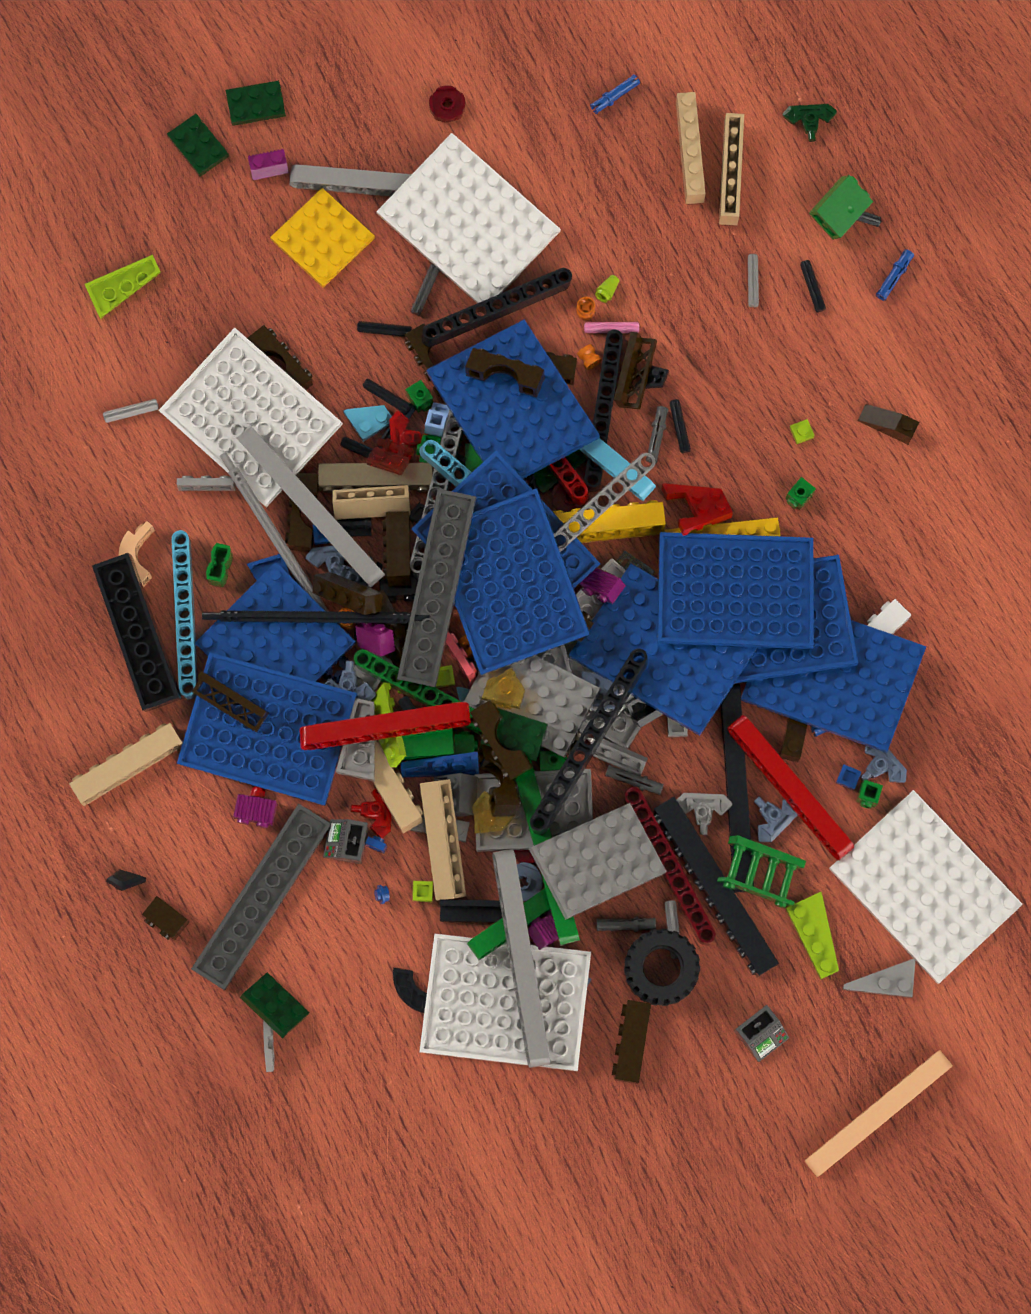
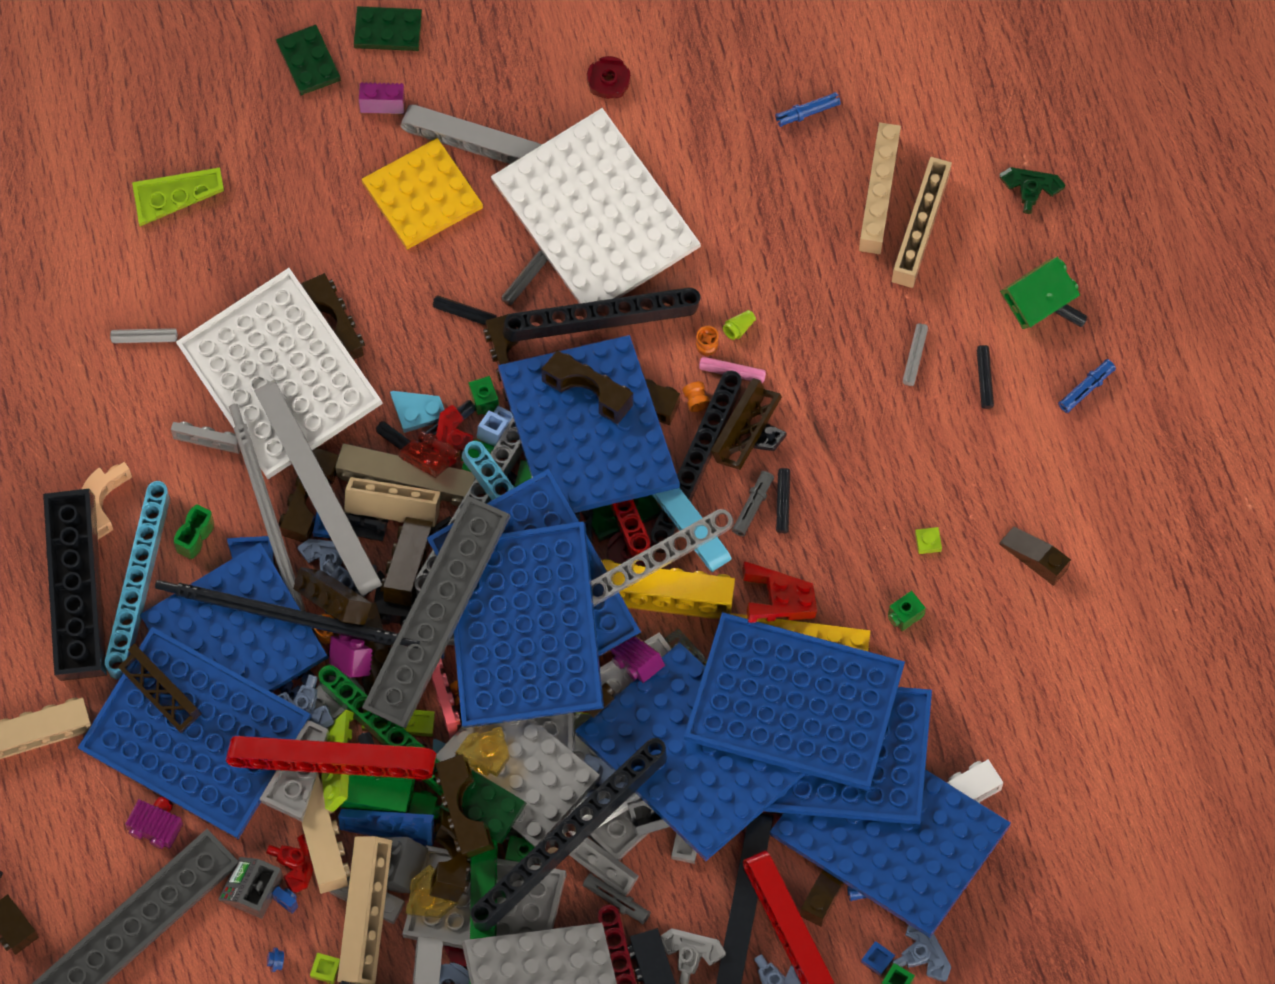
camera: 15 degrees right, 10 degrees down
(386, 395) = (445, 386): black axle -> none

